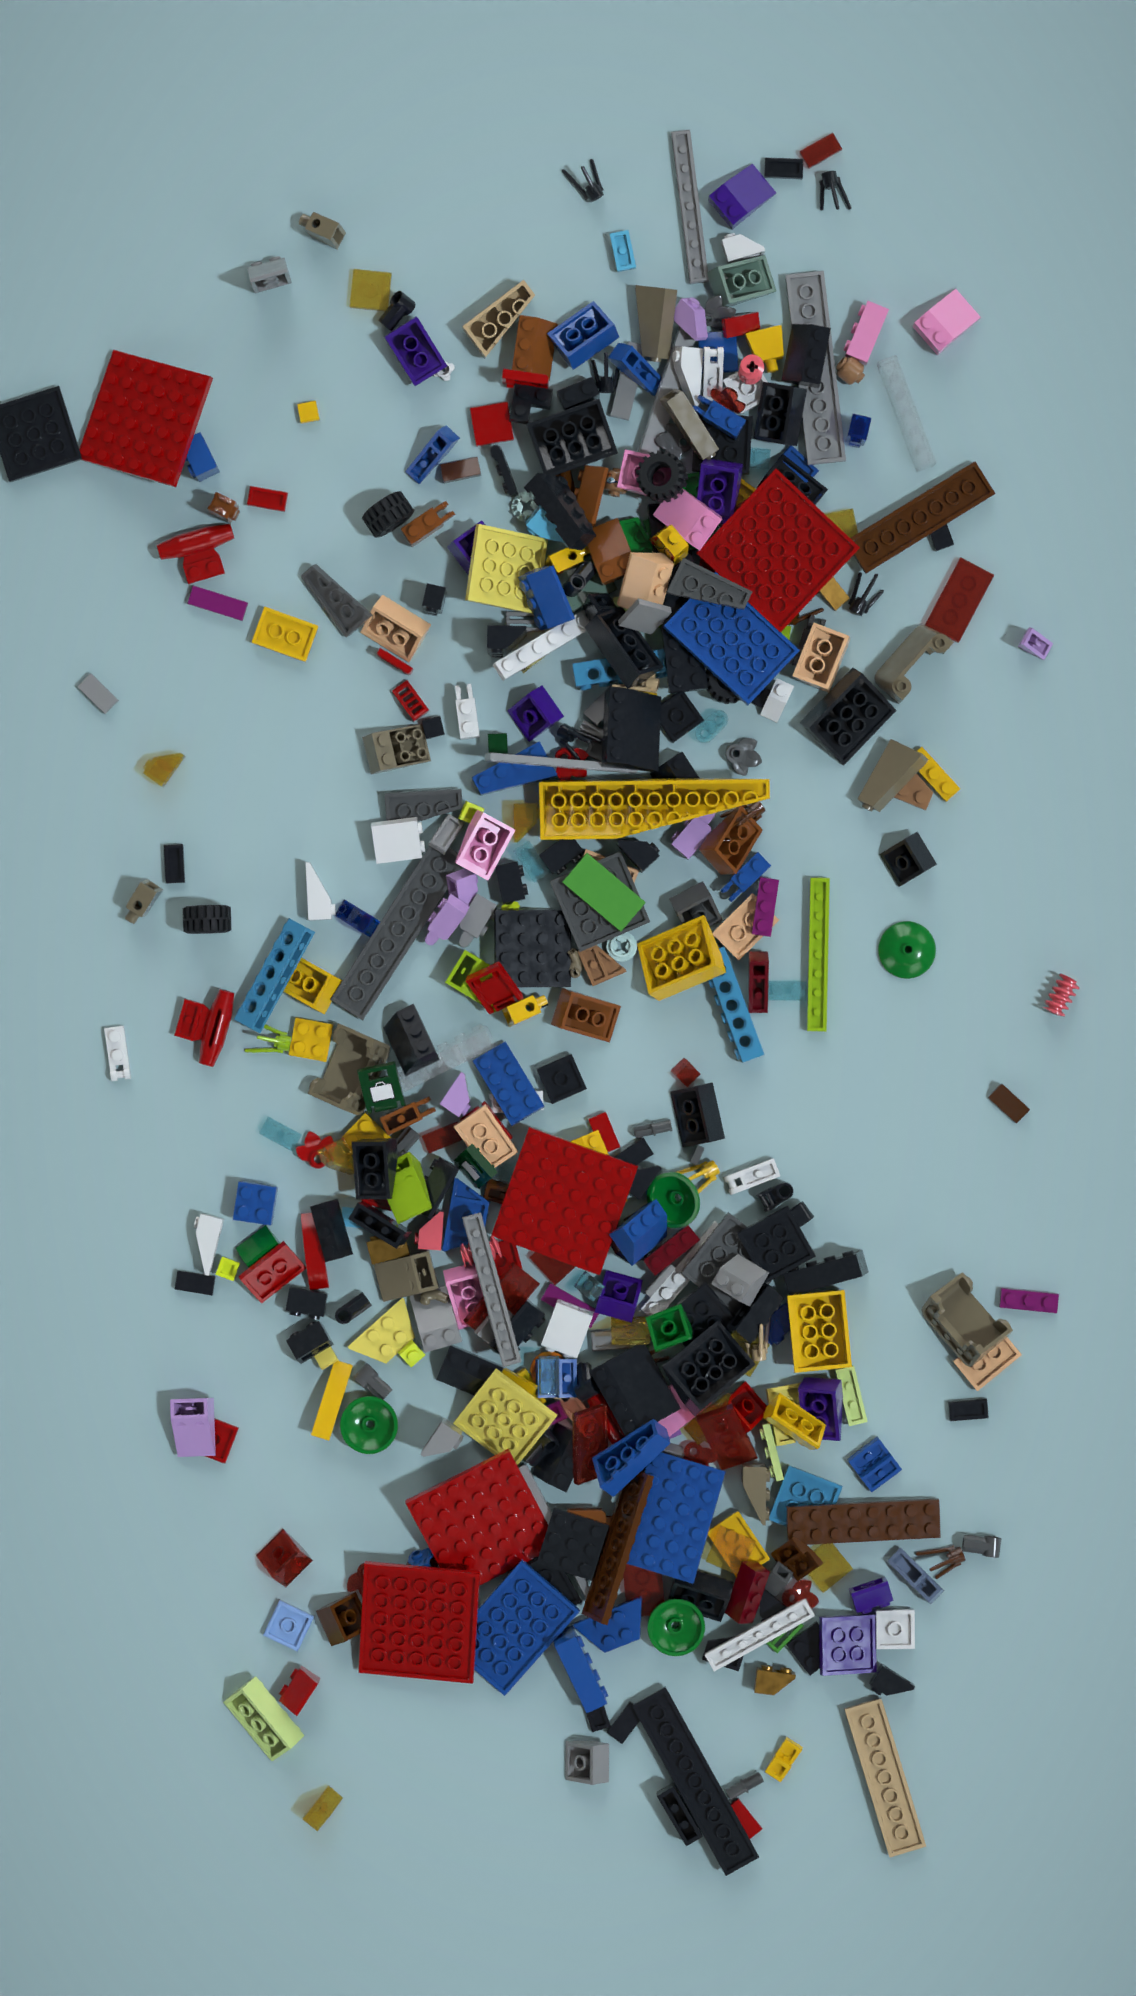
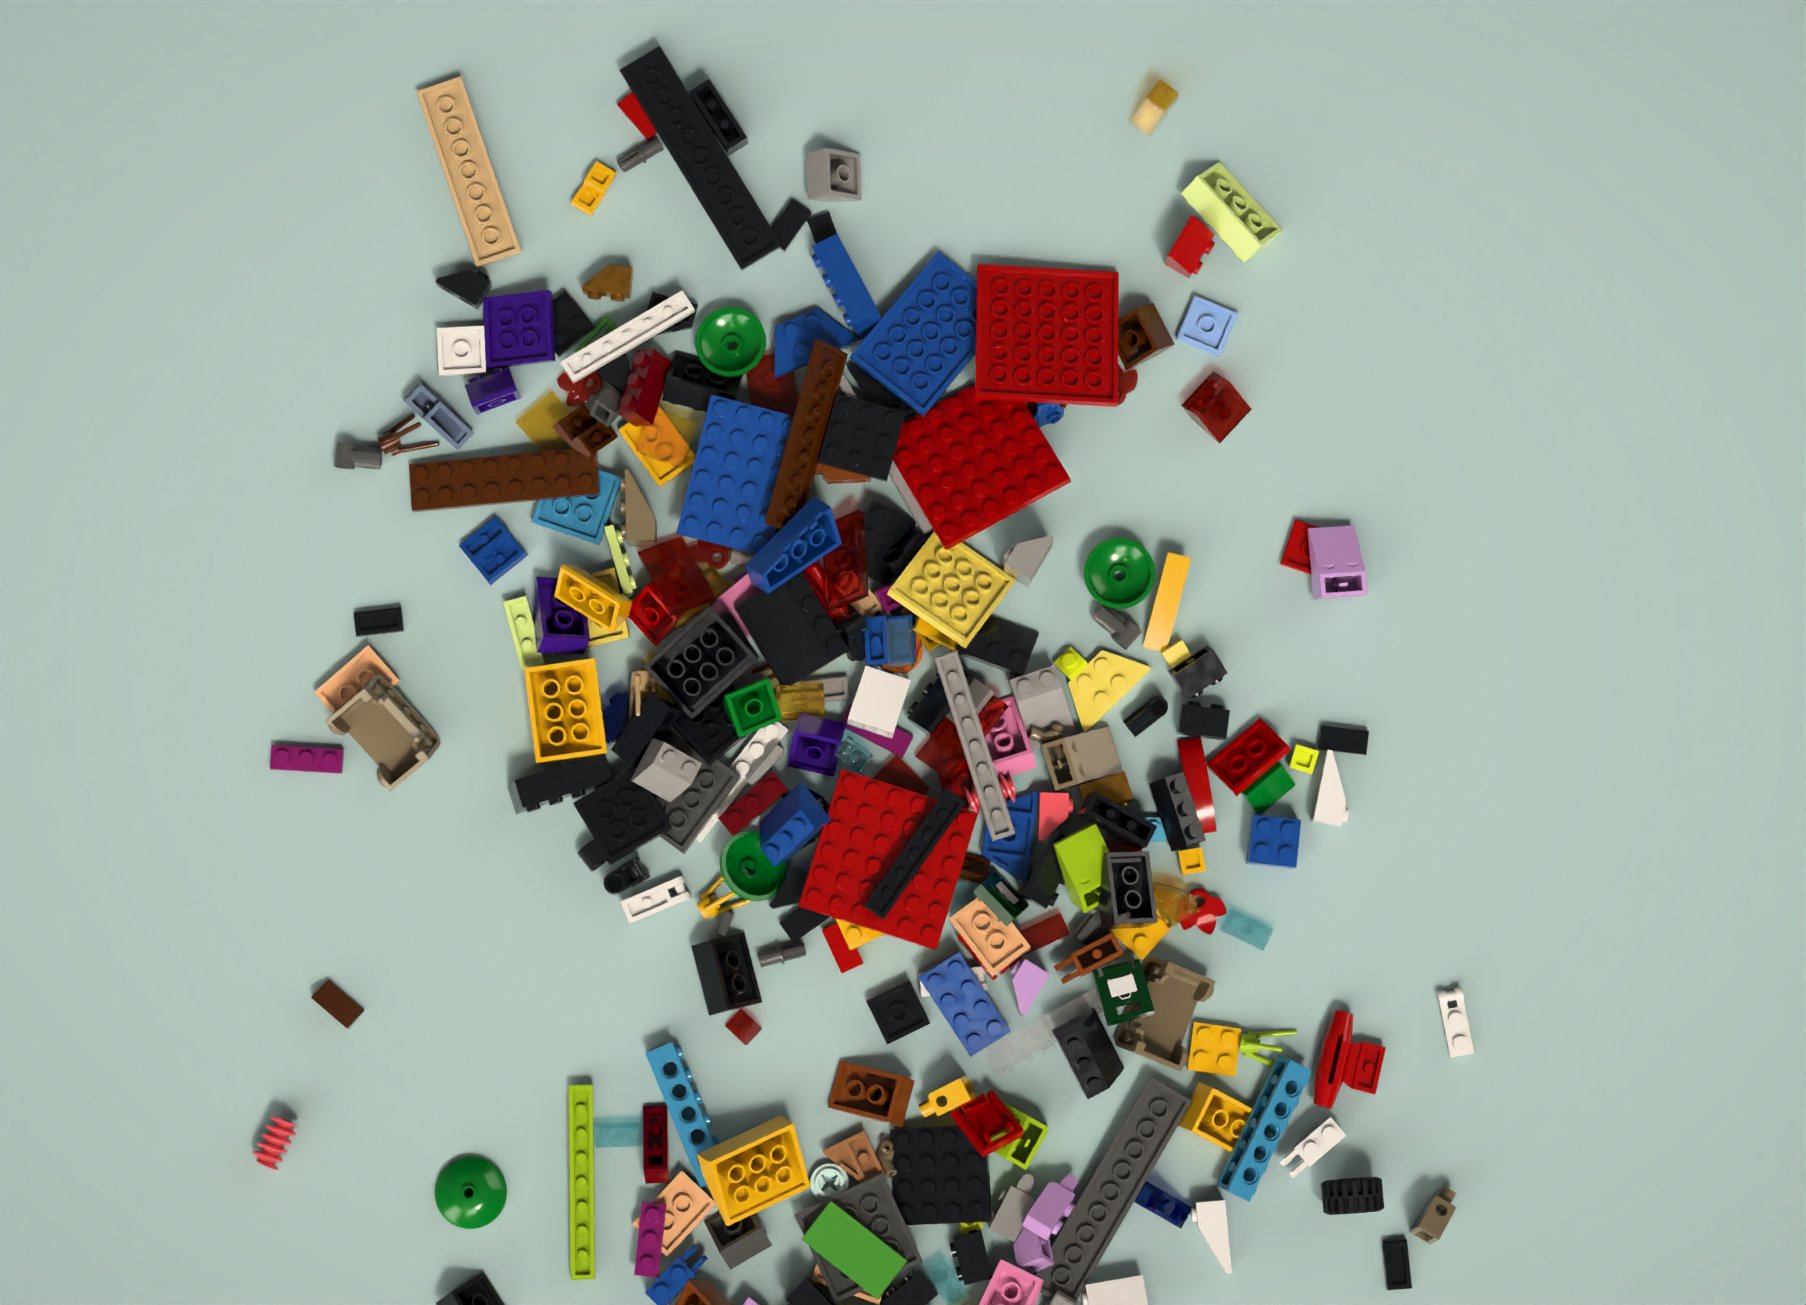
camera: 175 degrees right, 5 degrees down
(235, 960) = (1314, 1145): none -> white hinge
(321, 1190) = (1191, 861): none -> yellow plate
(543, 1203) = (914, 854): none -> black plate

